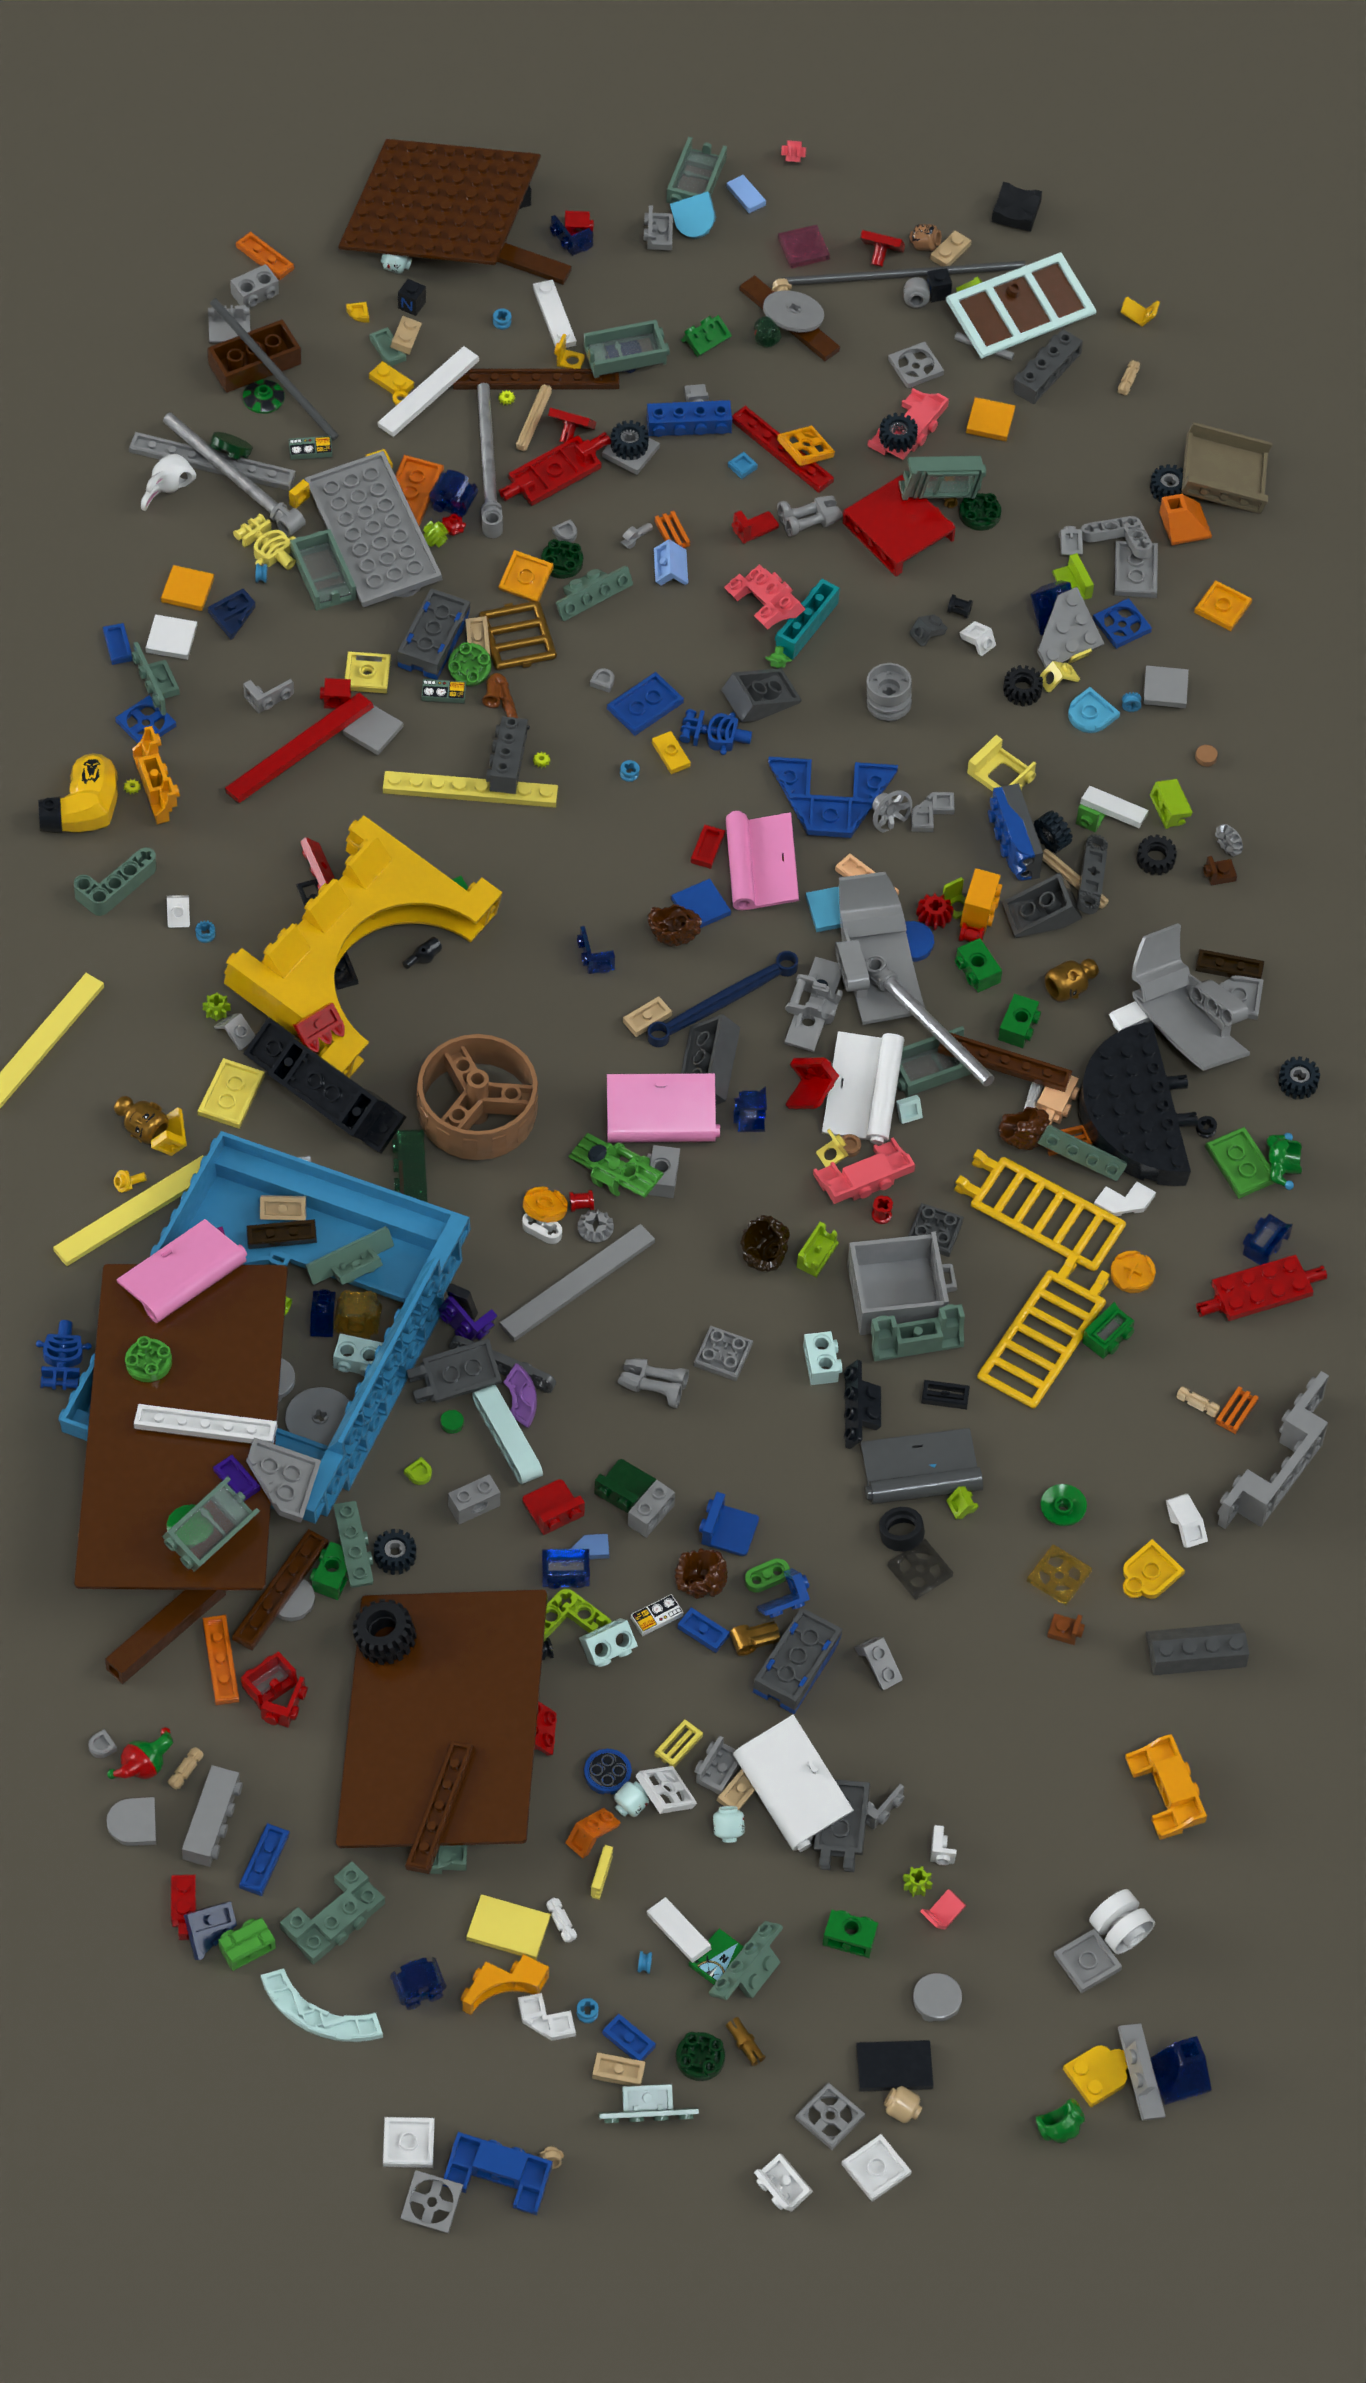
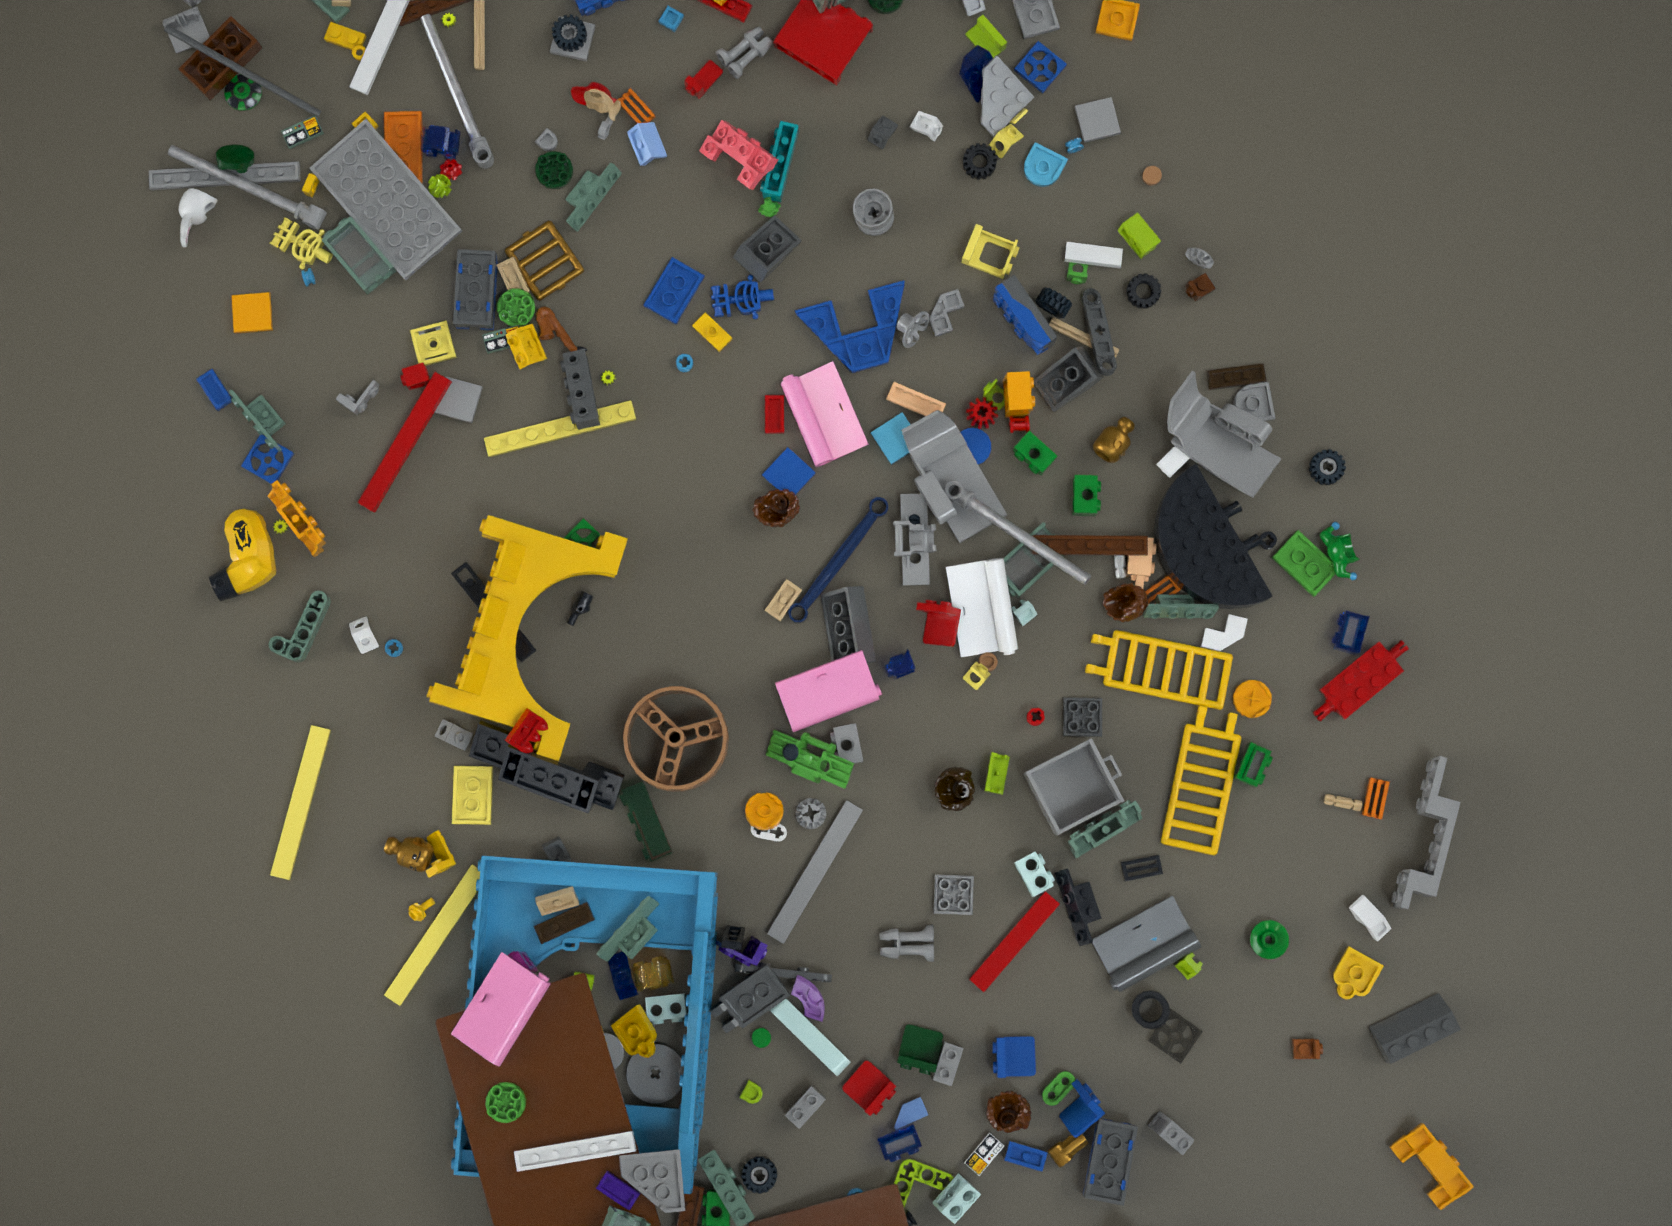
camera: 15 degrees left, 25 degrees up
(62, 1352) = (424, 1074): blue torso -> none
(171, 637) = (257, 367): white tile -> none
(216, 1006) = (425, 717): lime gear -> none
(232, 612) = (299, 324): dark blue wing -> none
(316, 1365) = (636, 1032): none -> yellow plate
(319, 866) = (465, 553): red tile -> none
(465, 701) = (525, 346): none -> yellow bracket
(526, 576) = (530, 200): light orange tile -> none
(555, 469) = (516, 82): red plate -> none
(571, 422) = (513, 30): red tile -> none
(581, 1200) = (792, 796): red bush -> none
(596, 962) = (729, 562): clear blue bracket -> none
(603, 680) = (630, 279): light grey tile -> none
(632, 505) = (596, 97): none -> tan hair
(773, 1419) = (1014, 941): none -> red tile
(867, 1175) = (1018, 687): coral bracket -> none
(960, 606) = (901, 100): black bush -> none
(1069, 1561) = (1266, 1011): clear yellow piece -> none

